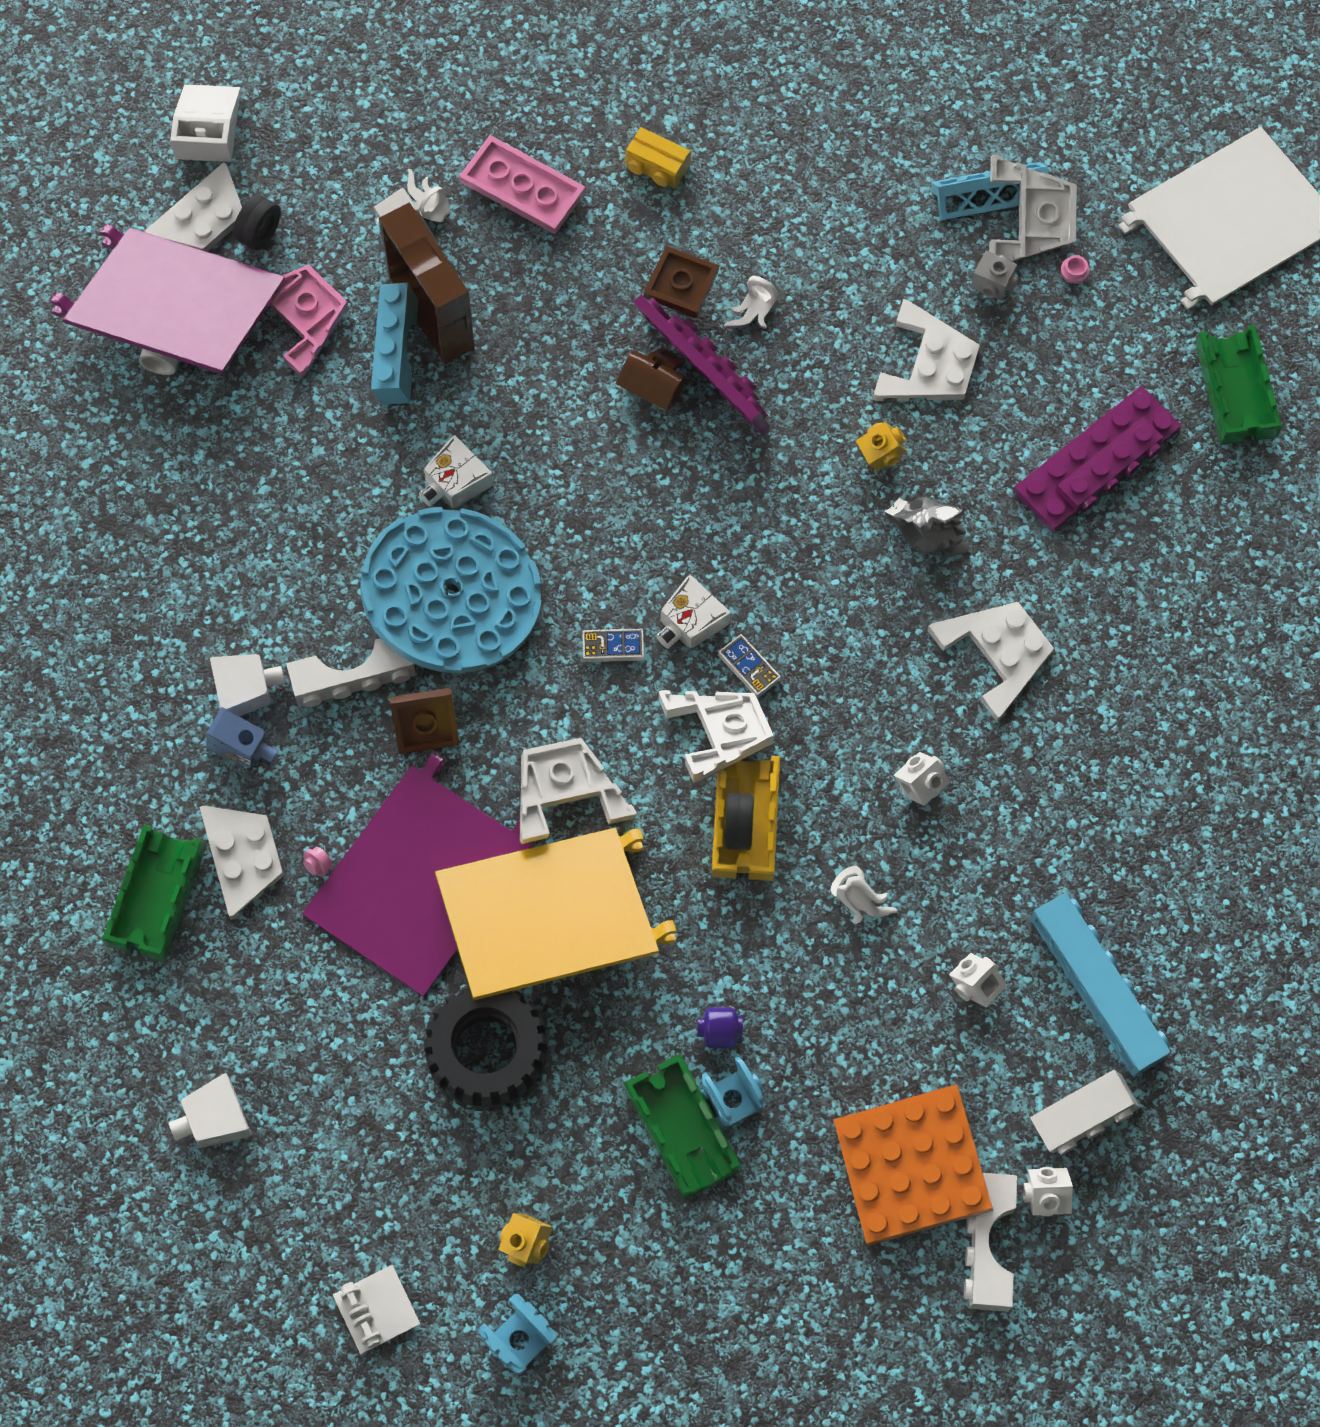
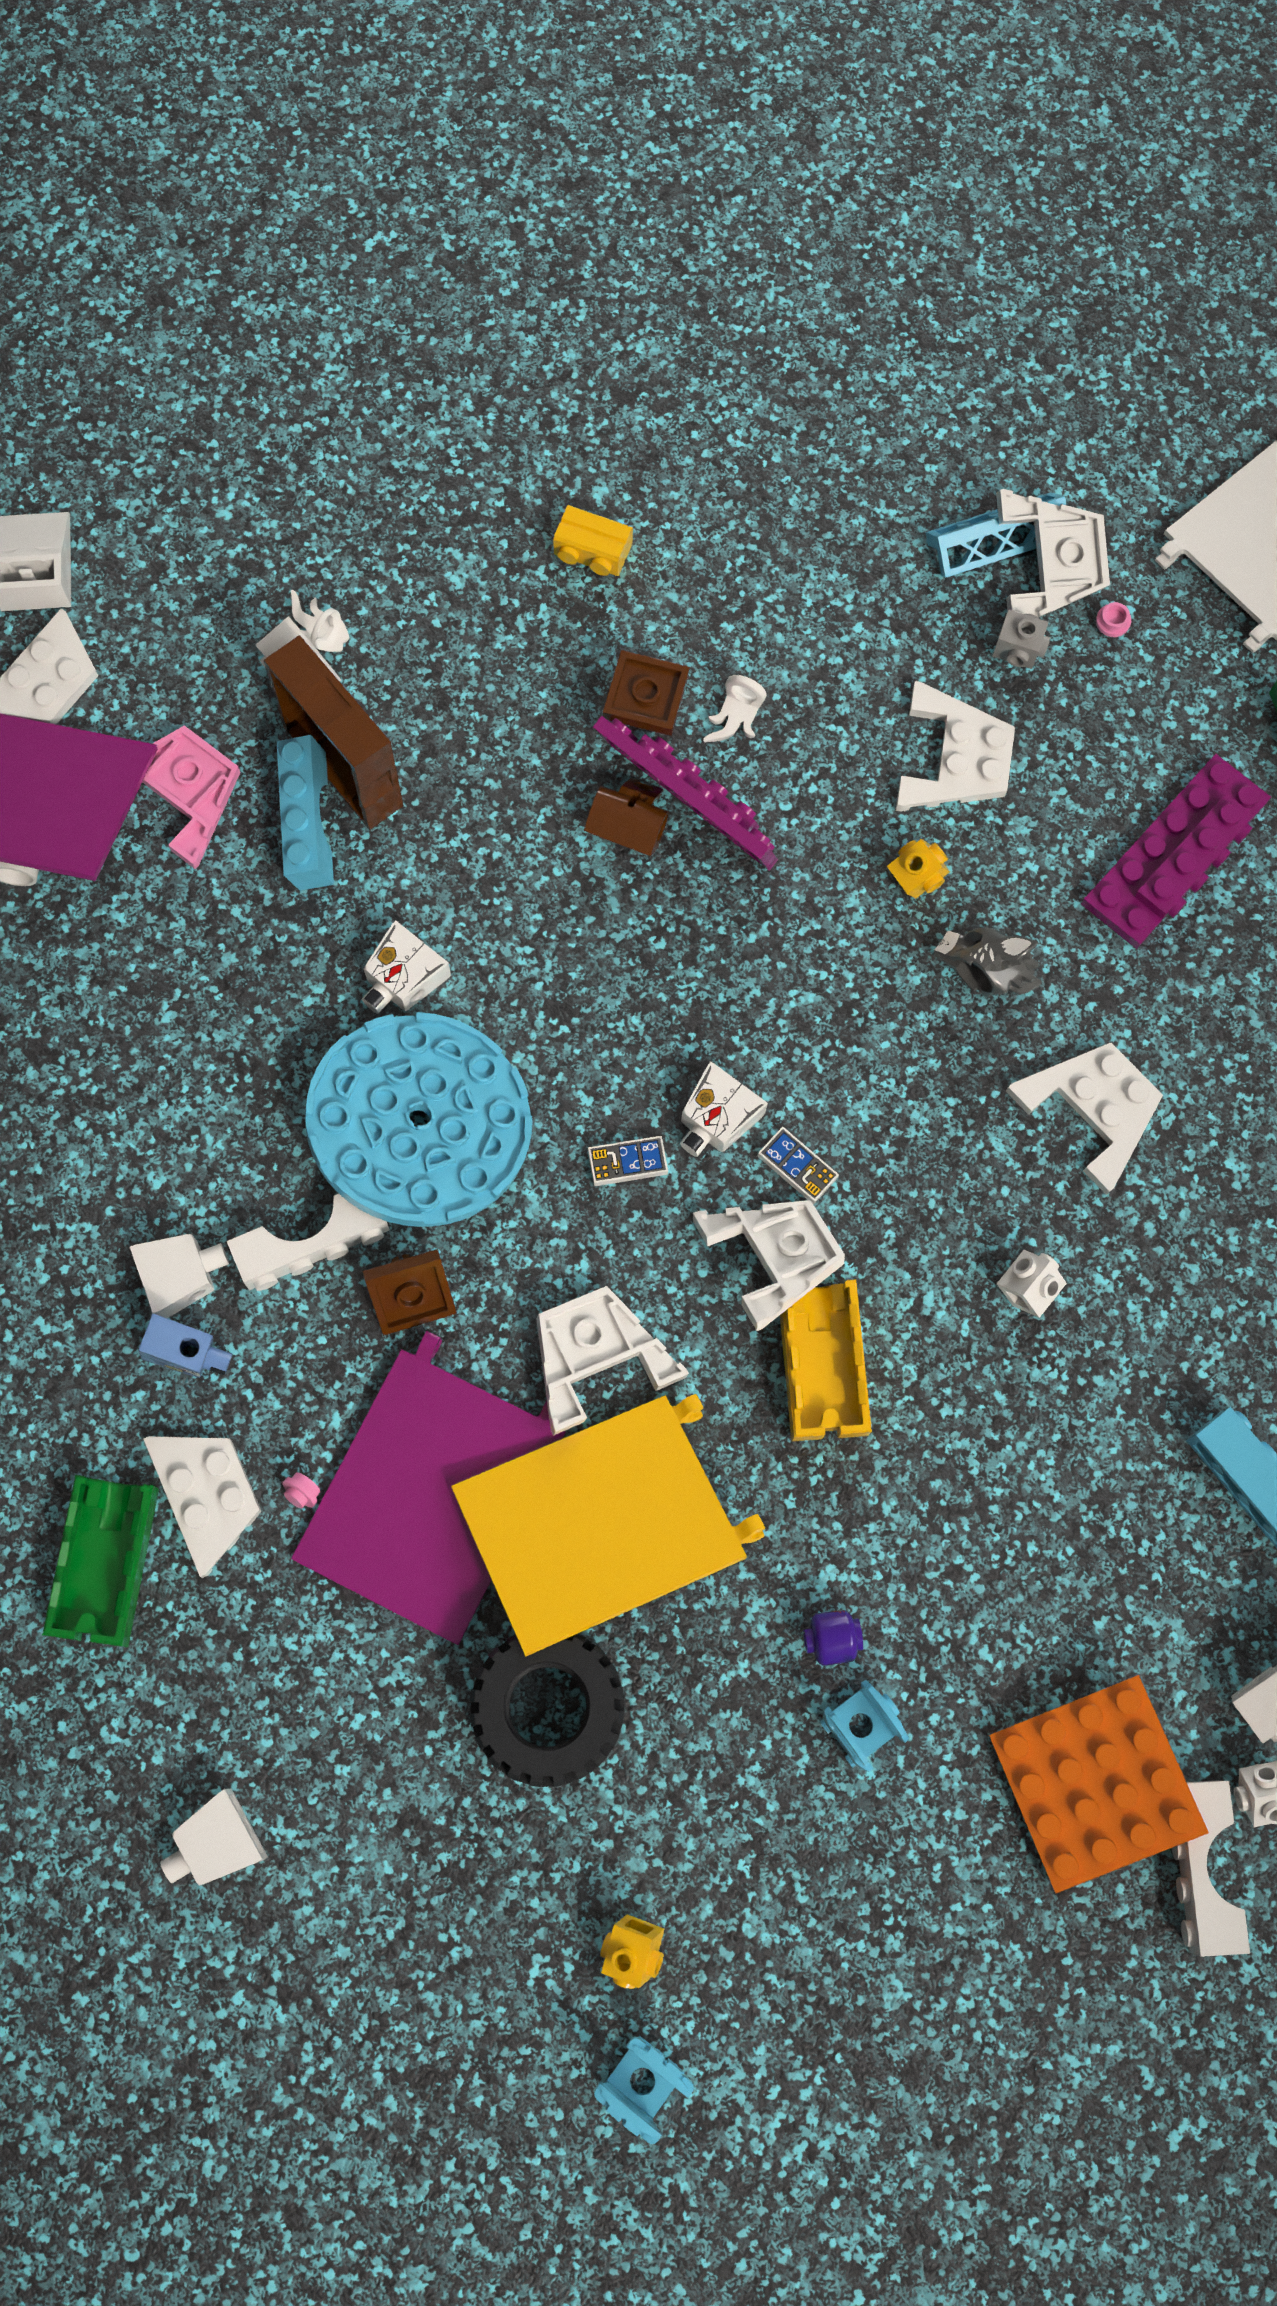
camera: 10 degrees left, 5 degrees up
(257, 222) = (112, 679): black tyre -> none
(376, 1309) = (457, 2068): white hinge -> none
(522, 184) = (433, 593): bright pink plate -> none
(682, 1127) = (806, 1774): green piece -> none
(739, 821) = (820, 1372): black tyre -> none
(858, 895) = (977, 1441): white piece -> none
(978, 980) = (1140, 1532): white brick -> none

